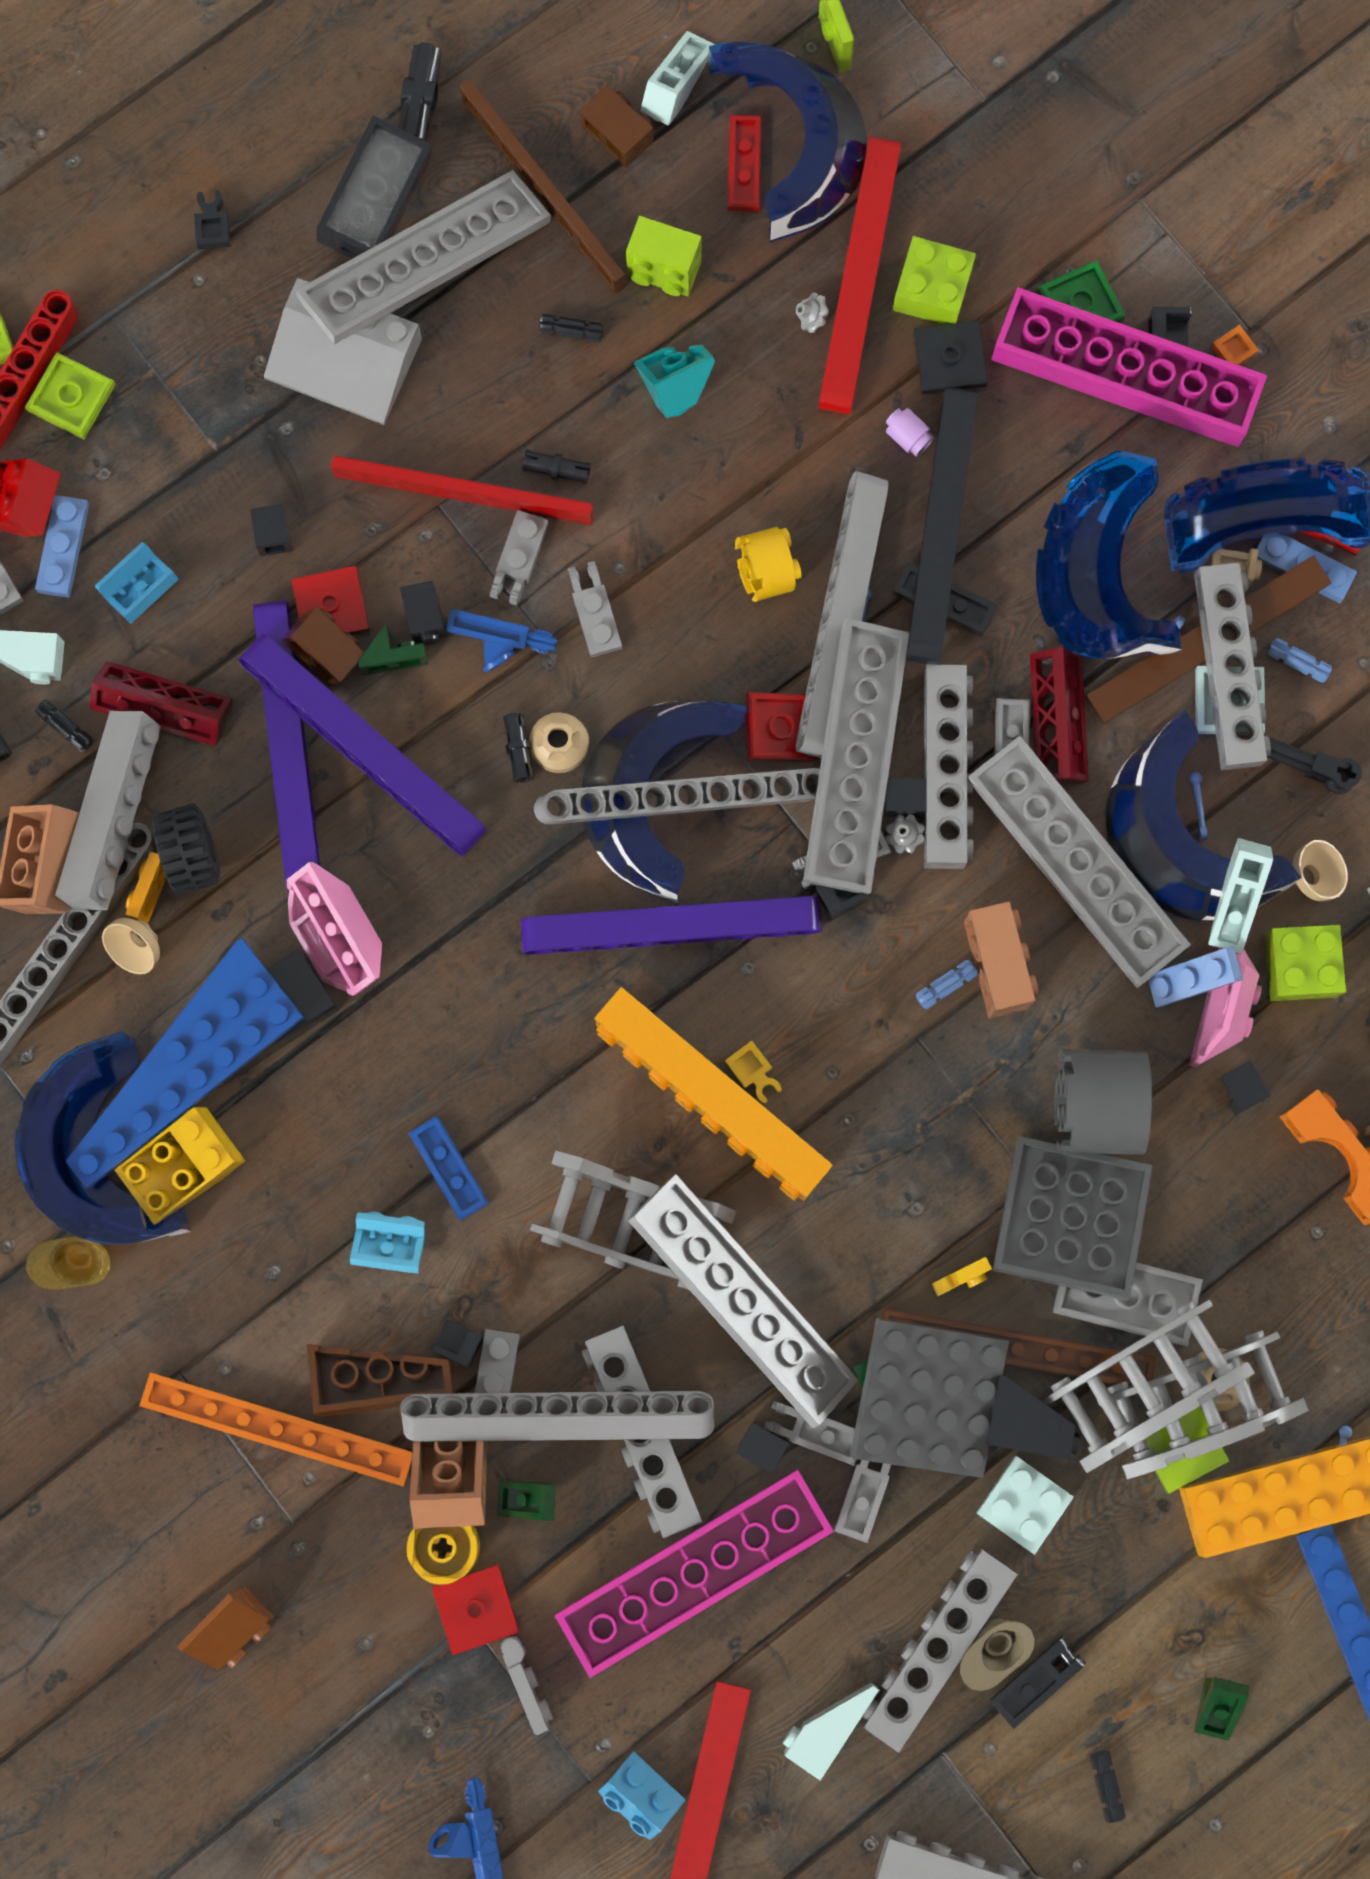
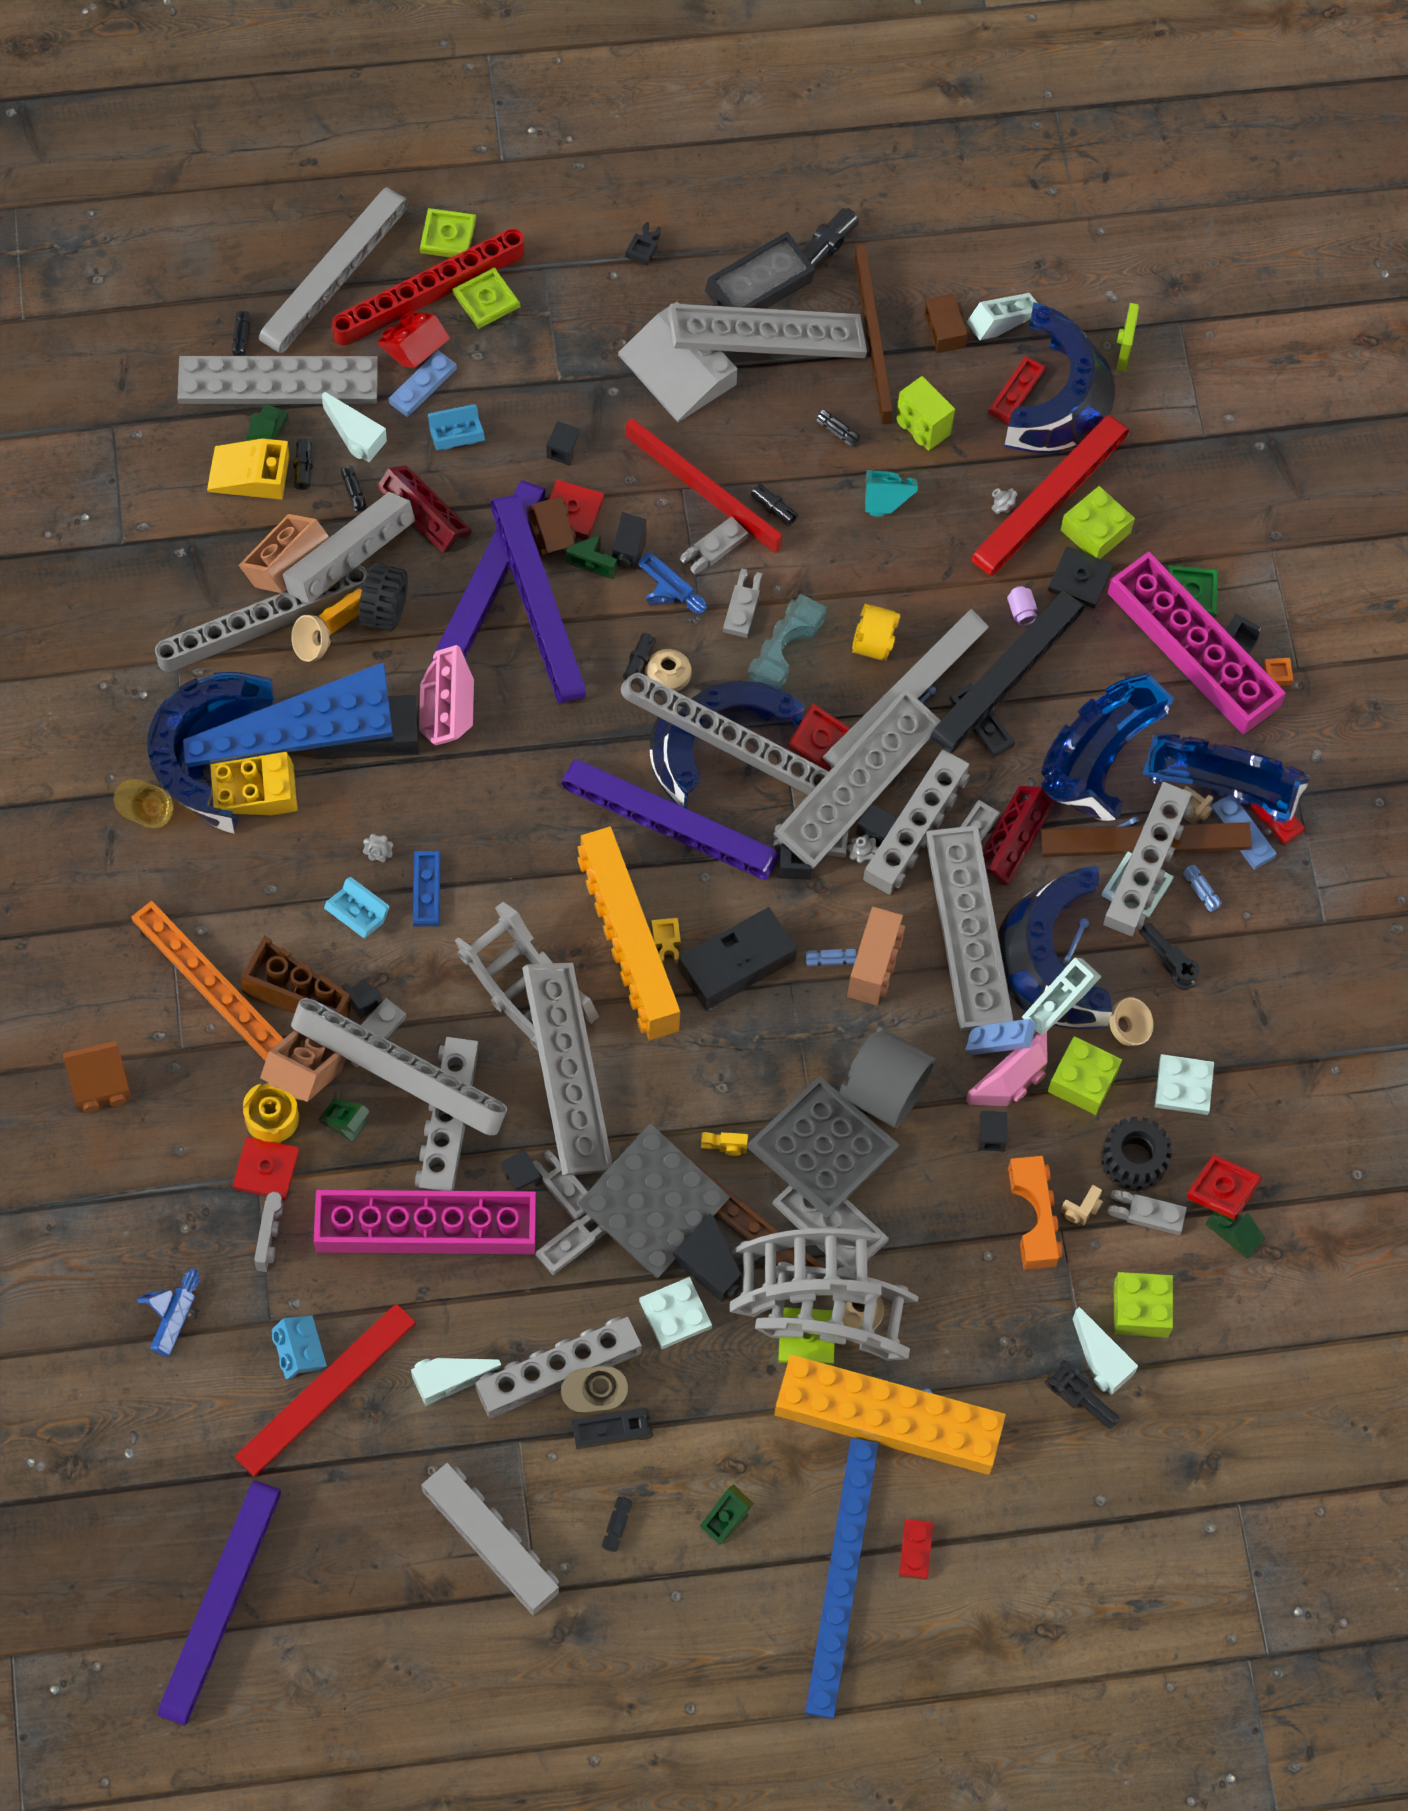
camera: 25 degrees right, 15 degrees down
(365, 1154) = (378, 848): none -> light grey plant
(674, 594) = (802, 621): none -> clear light blue arch
(846, 1050) = (737, 958): none -> black brick

